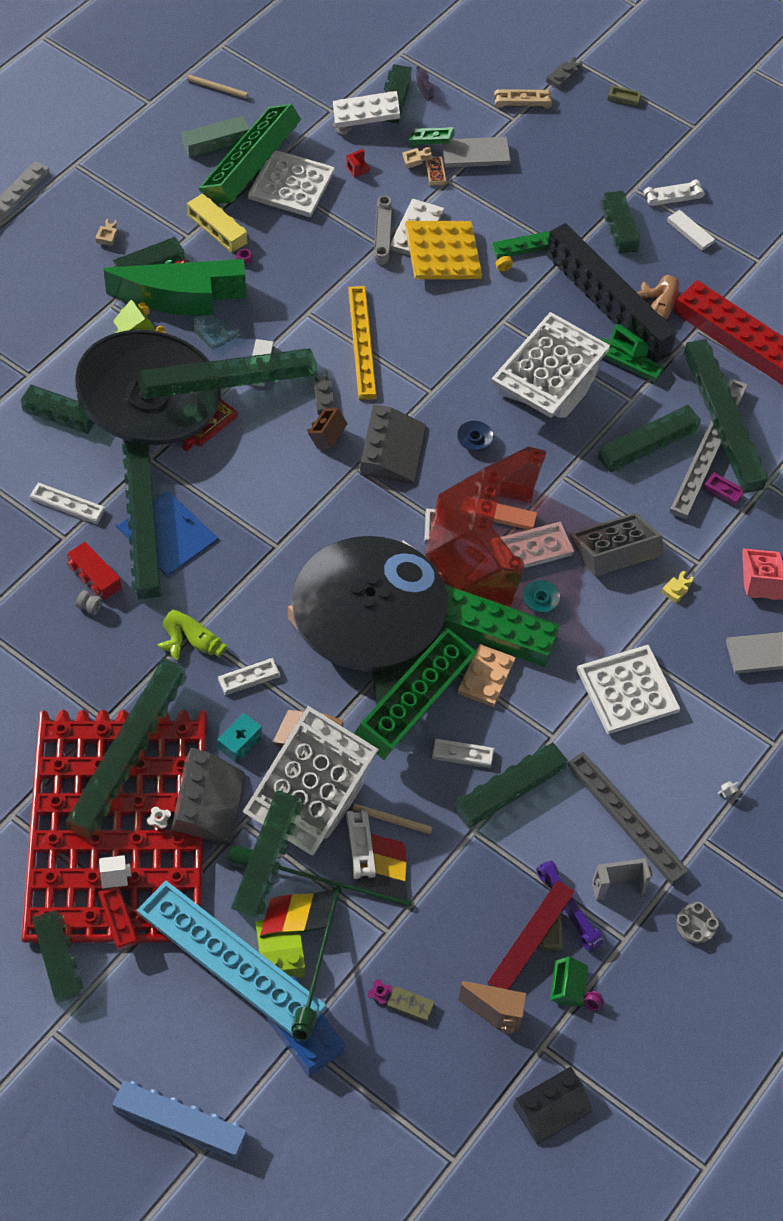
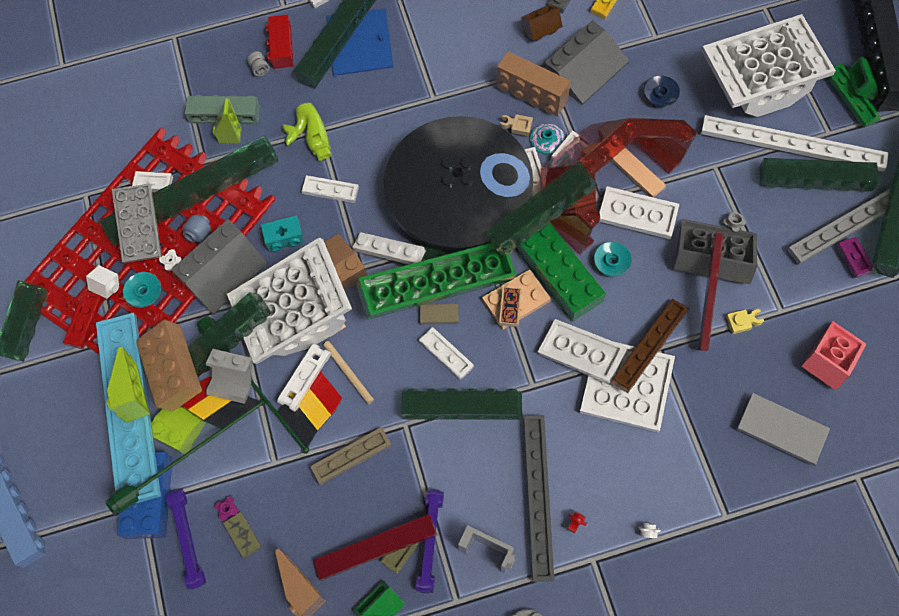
camera: 45 degrees right, 10 degrees up
(82, 760) = (157, 180): none -> white plate
(89, 662) = (206, 108): none -> sand green brick
(106, 800) = (136, 223): none -> light grey tile
(110, 670) = (227, 125): none -> lime slope
(153, 849) = (137, 284): none -> teal dish
(163, 775) = (196, 228): none -> sand blue head
(234, 937) = (126, 389): none -> lime slope
(240, 901) = (168, 366): none -> medium nougat brick
(299, 879) = (229, 376): none -> light grey panel
(349, 694) = (388, 248): none -> white plate
(363, 486) = (532, 83): none -> medium nougat brick
(374, 527) = (520, 124): none -> tan plate
(398, 1061) = (195, 576): none -> dark purple piece
(409, 533) = (546, 144): none -> dish
(432, 725) = (439, 314): none -> dark tan tile
(451, 882) = (350, 456): none -> dark tan plate
(469, 580) = (541, 209): none -> clear green brick
(490, 681) = (510, 306): none -> tile
(574, 682) = (582, 351): none -> white plate
(609, 423) = (791, 142): none -> white plate
(612, 511) = (734, 217): none -> light grey plate
(624, 647) = (649, 346): none -> reddish brown tile
(641, 576) = (710, 293): none -> dark red tile
(670, 817) = (577, 519): none -> red plate

